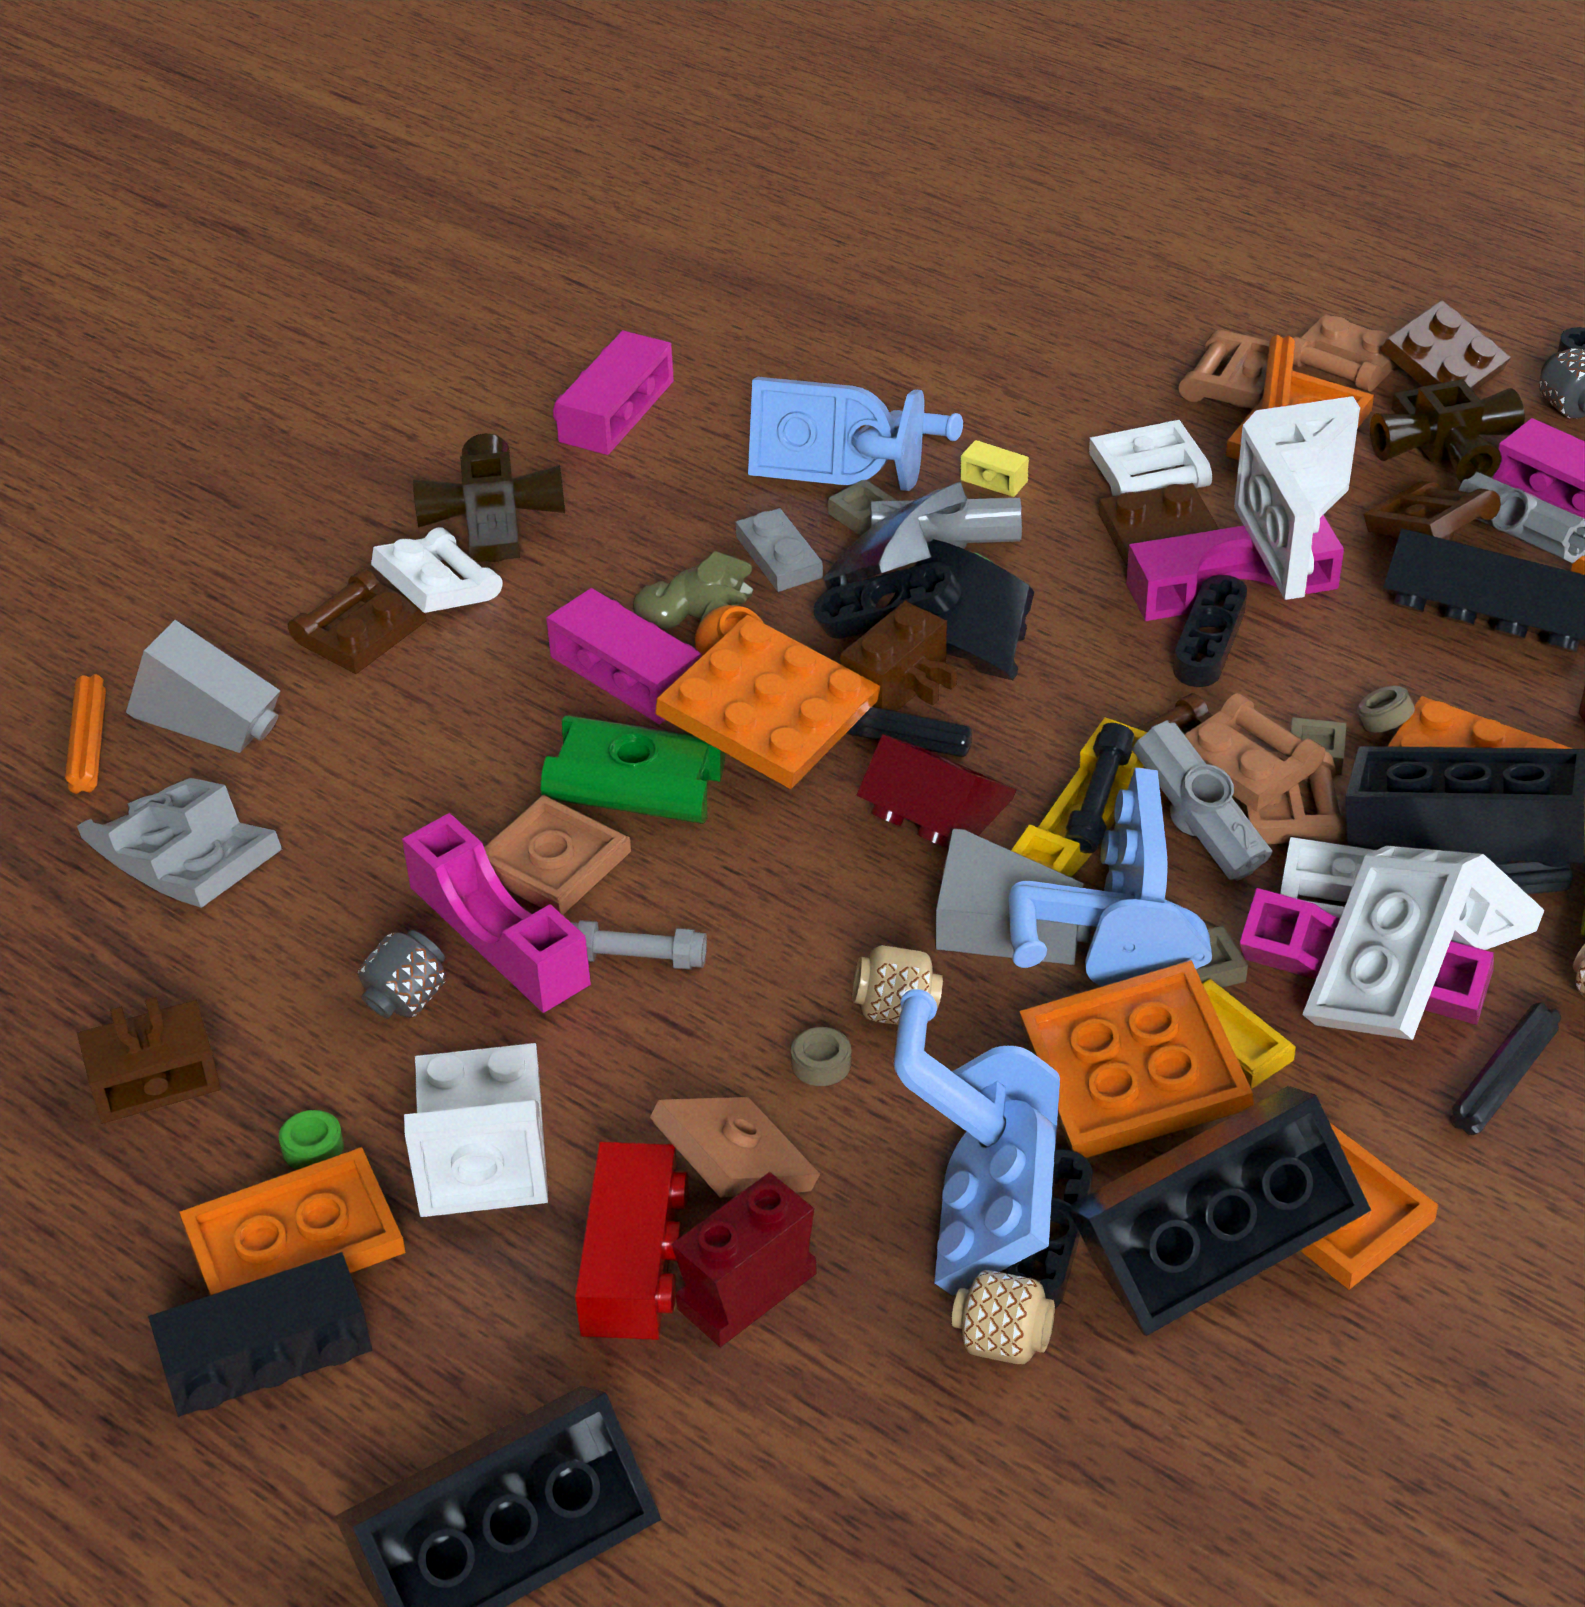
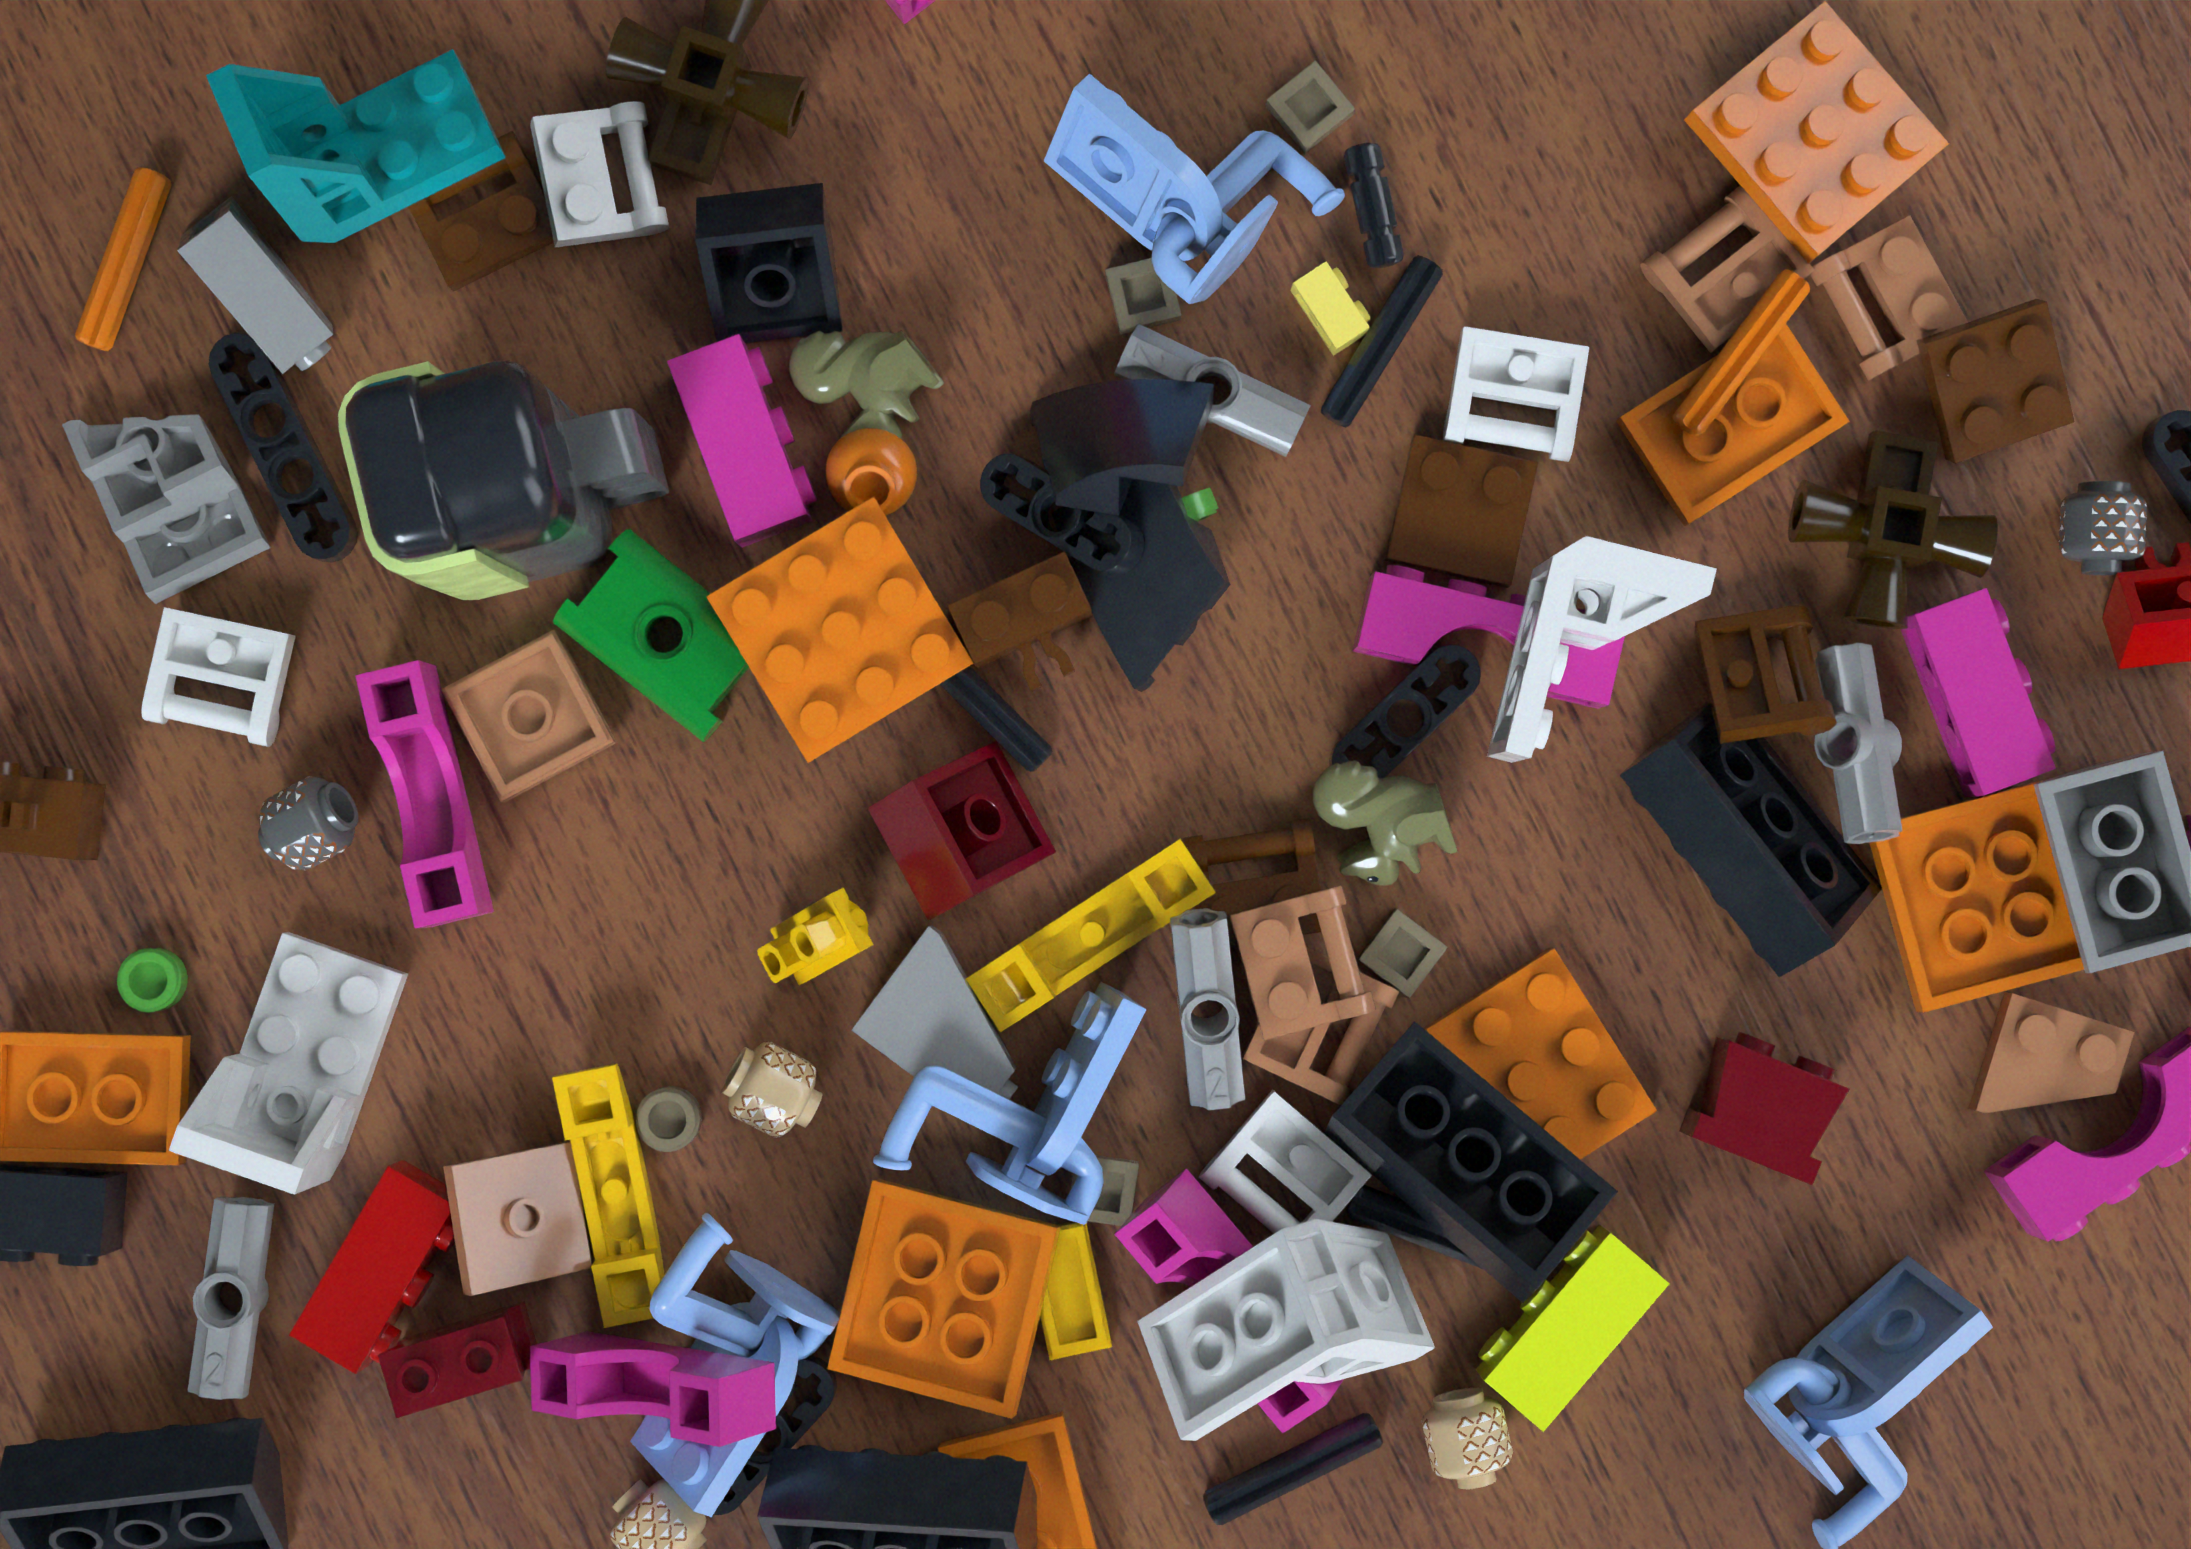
camera: 25 degrees right, 45 degrees up
(233, 603) = (356, 161): none -> teal bracket
(275, 778) = (277, 451): none -> black beam
(276, 910) = (222, 655): none -> white plate
(459, 655) = (489, 476): none -> black piece
(502, 1320) = (223, 1337): none -> light grey piece
(586, 554) = (768, 263): none -> black slope
(685, 948) = (513, 855): light grey bar -> none
(764, 1069) = (613, 1191): none -> yellow slope
(779, 549) = (1008, 323): light grey plate -> none
(871, 875) = (816, 939): none -> yellow hips
(883, 1210) = (702, 1392): none -> dark pink arch
(900, 385) = (1310, 107): none -> dark tan tile
(986, 419) = (1373, 205): none -> black axle
(1041, 473) = (1381, 341): none -> black axle
(1112, 749) = (1148, 908): black bar -> none
(1235, 298) = (1816, 131): none -> orange plate
(1248, 658) = (1397, 815): none -> olive animal
(1385, 709) = (1502, 948): dark tan tile -> none

